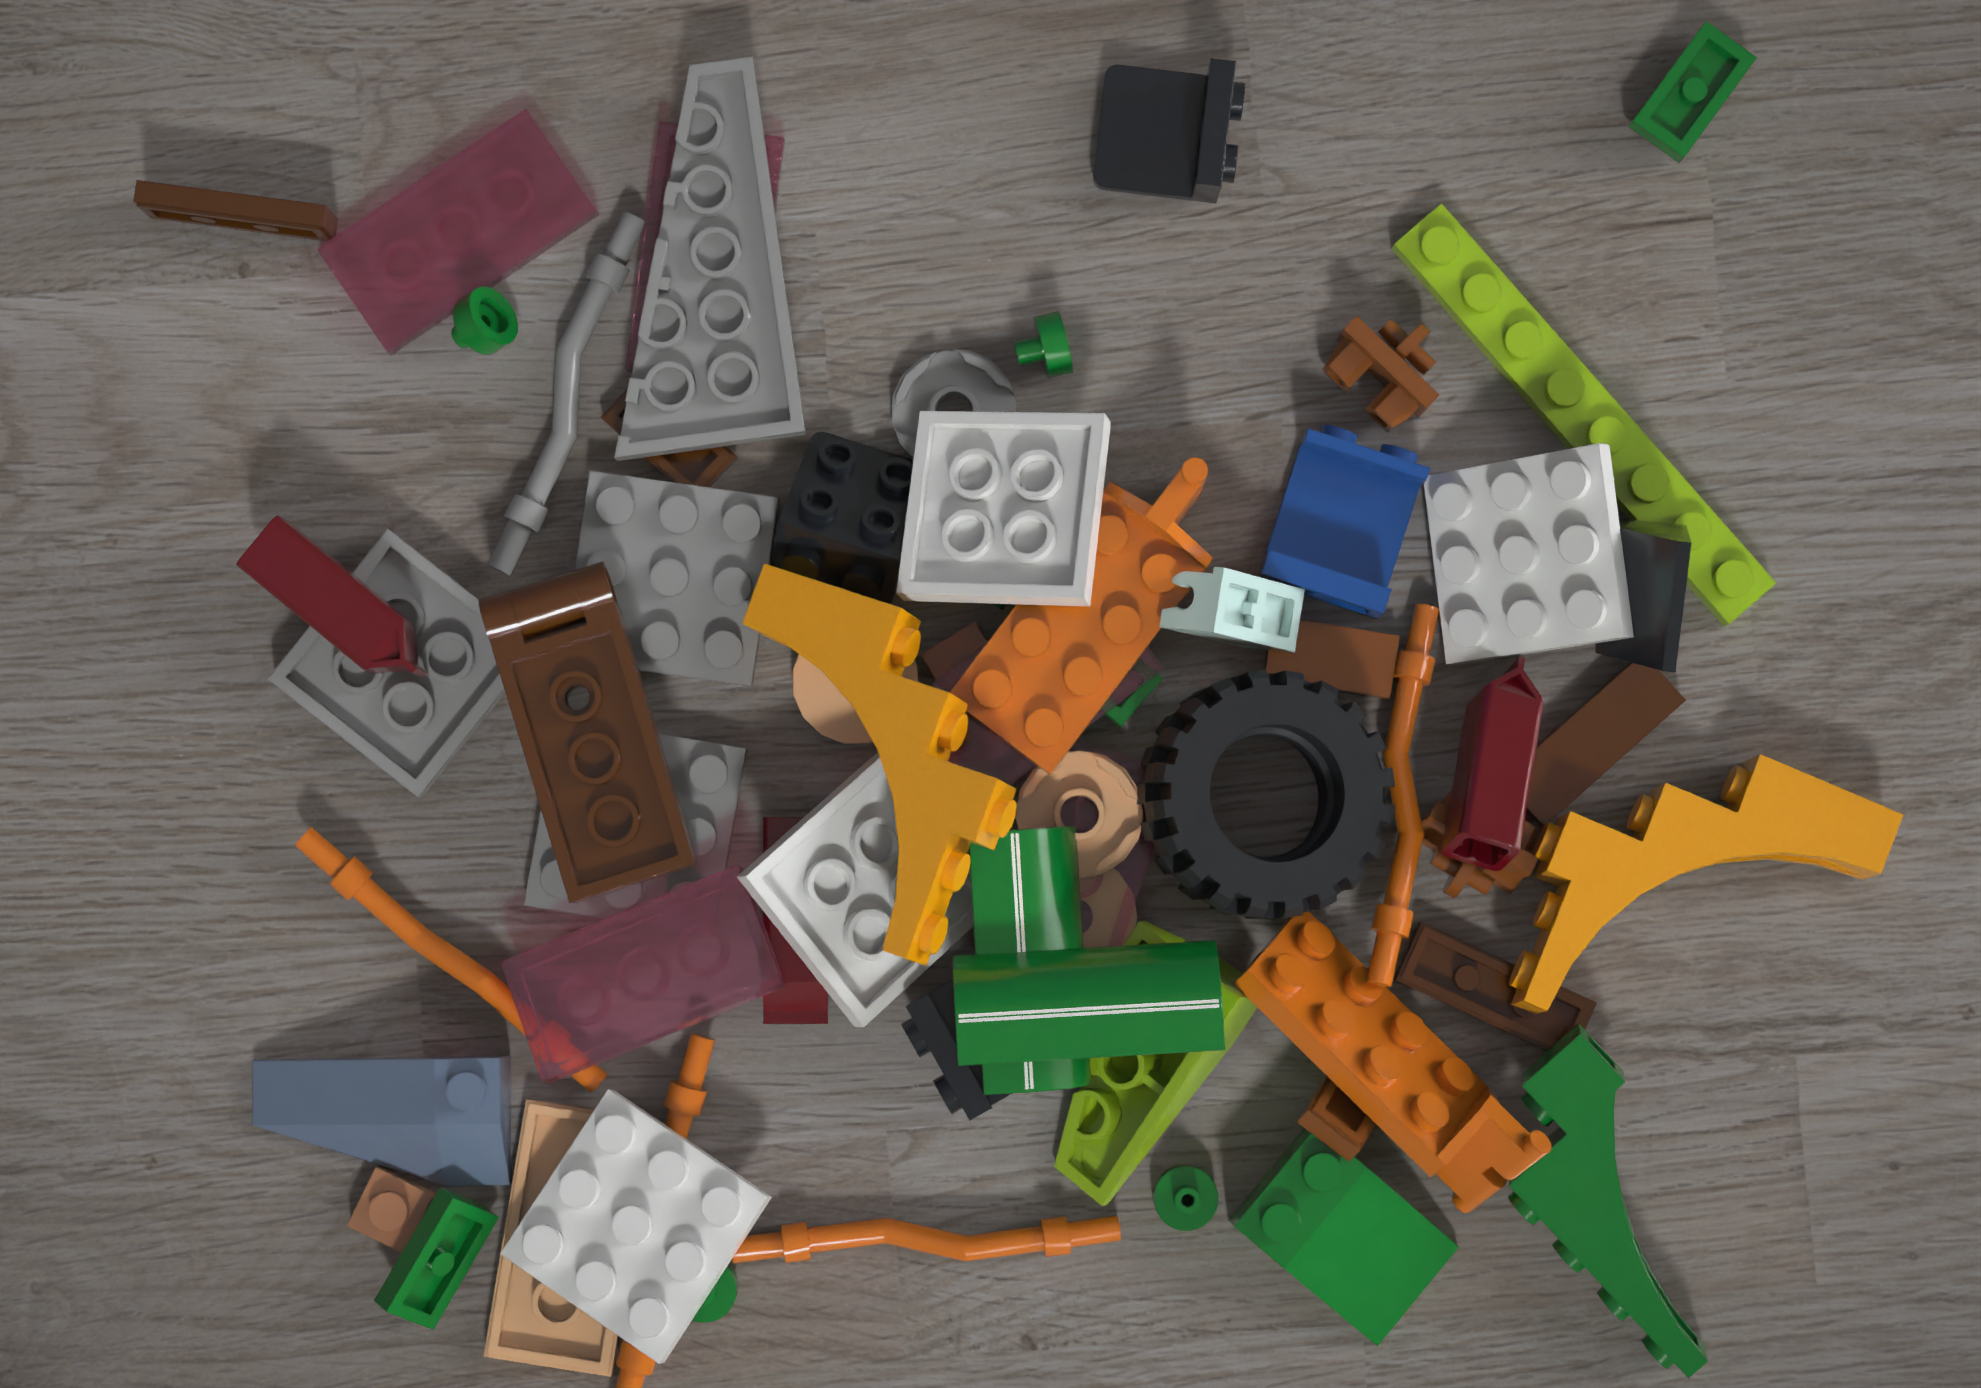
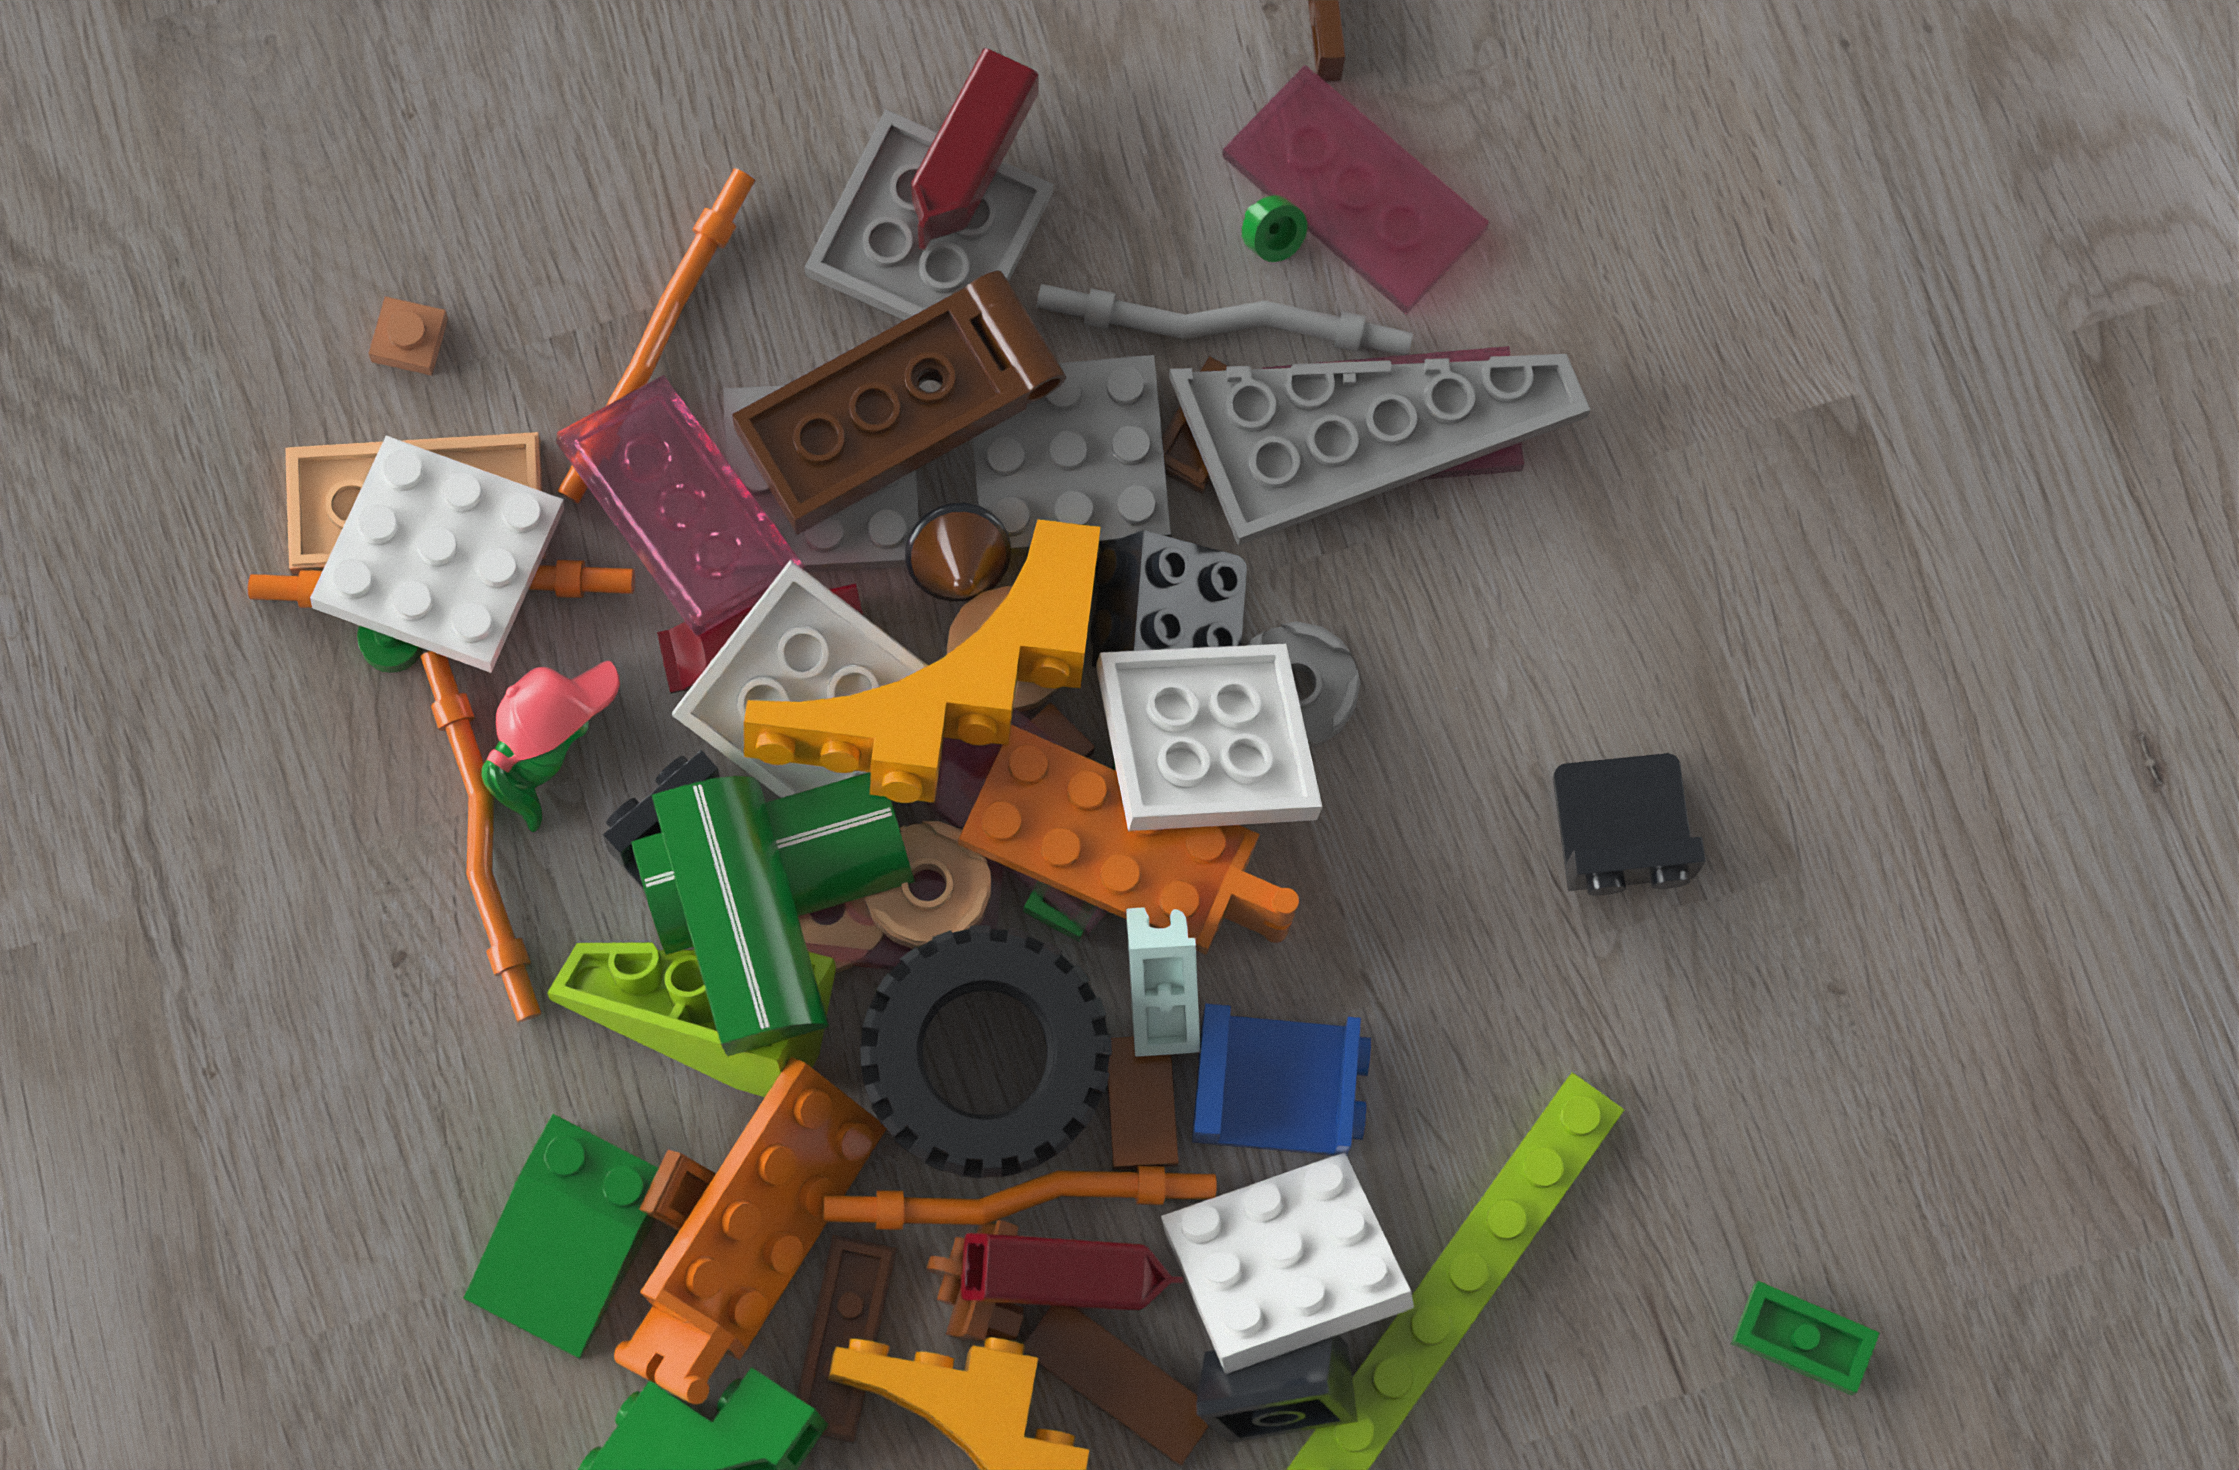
camera: 75 degrees right, 10 degrees down
(410, 1114) = (502, 332): sand blue wedge -> none
(436, 1258) = (369, 383): green plate -> none
(752, 709) = (957, 552): none -> reddish brown hat
(835, 1157) = (537, 727): none -> coral hair
(1048, 346) = (1382, 756): green tile -> none
(1175, 1184) = (572, 1091): green tile -> none
(1404, 388) = (1451, 1059): dark orange hips -> none

